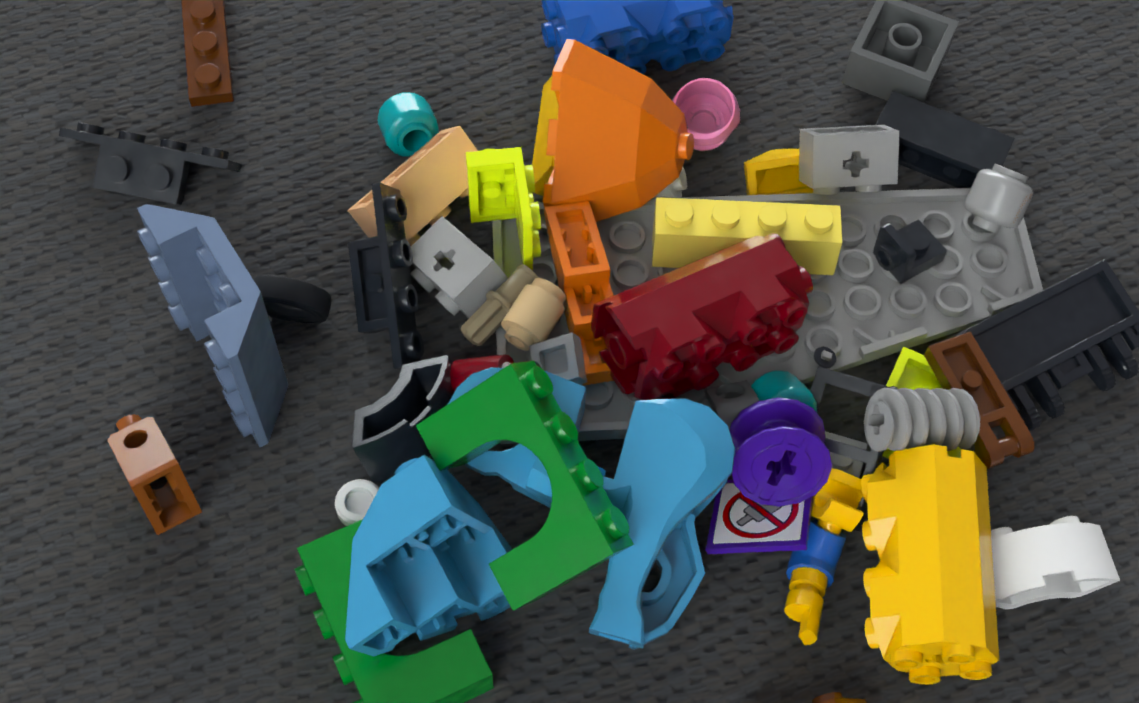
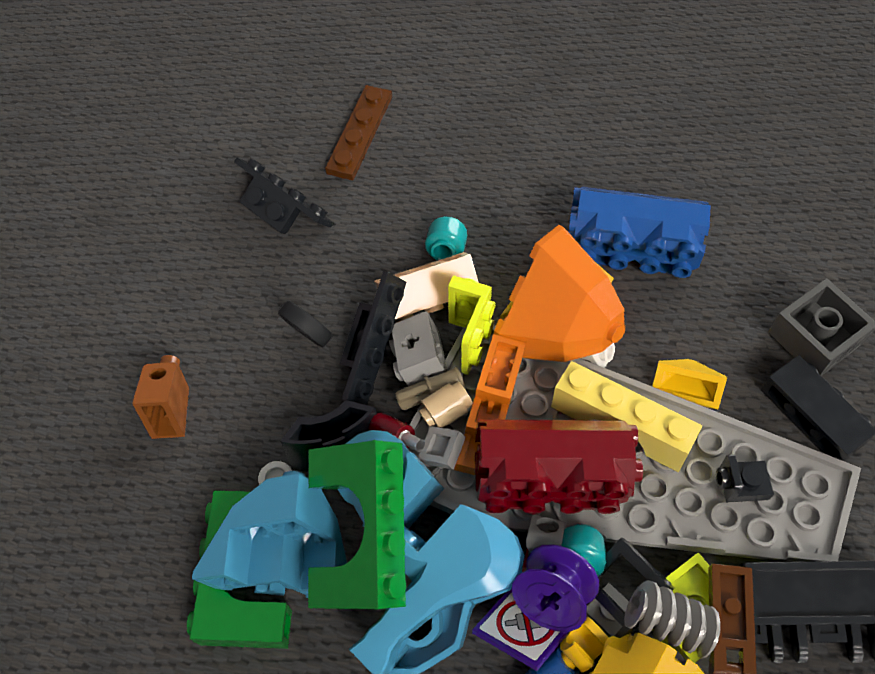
camera: 35 degrees right, 0 degrees up
(218, 298) = (248, 345): sand blue slope -> none
(709, 112) = (651, 309): bright pink helmet -> none
(824, 357) = (635, 531): black piece -> none
(873, 163) = (724, 377): light grey brick -> none
(998, 198) = (836, 473): light grey head -> none

